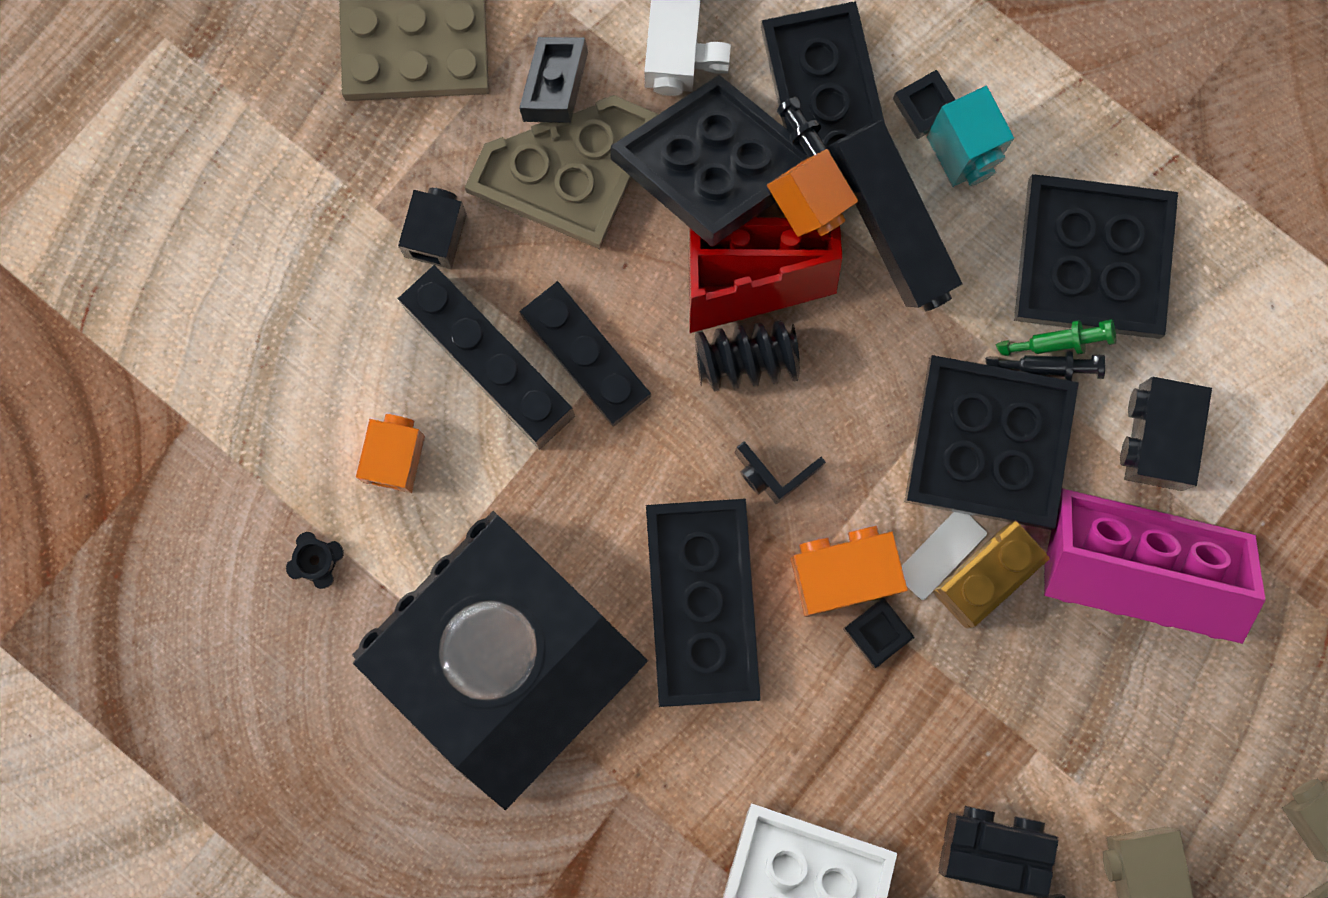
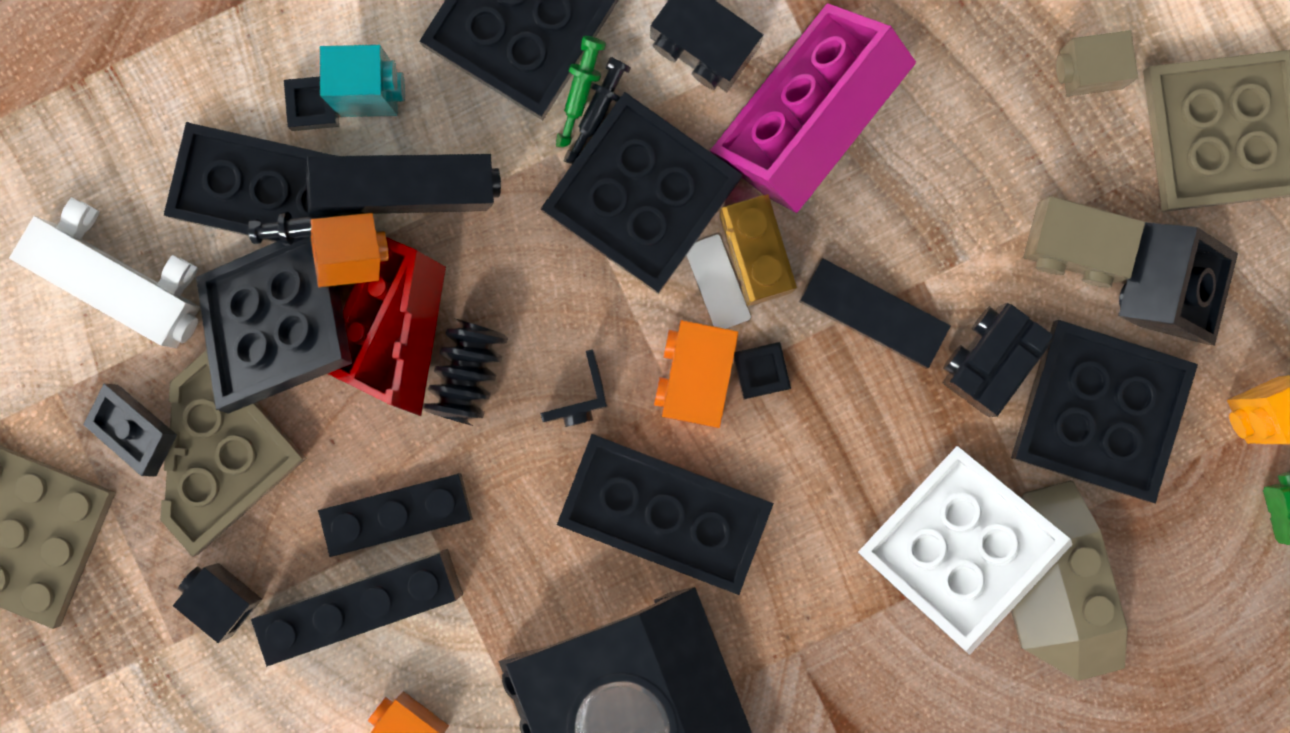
camera: 60 degrees left, 5 degrees up
(984, 716) = (874, 313): none -> black tile

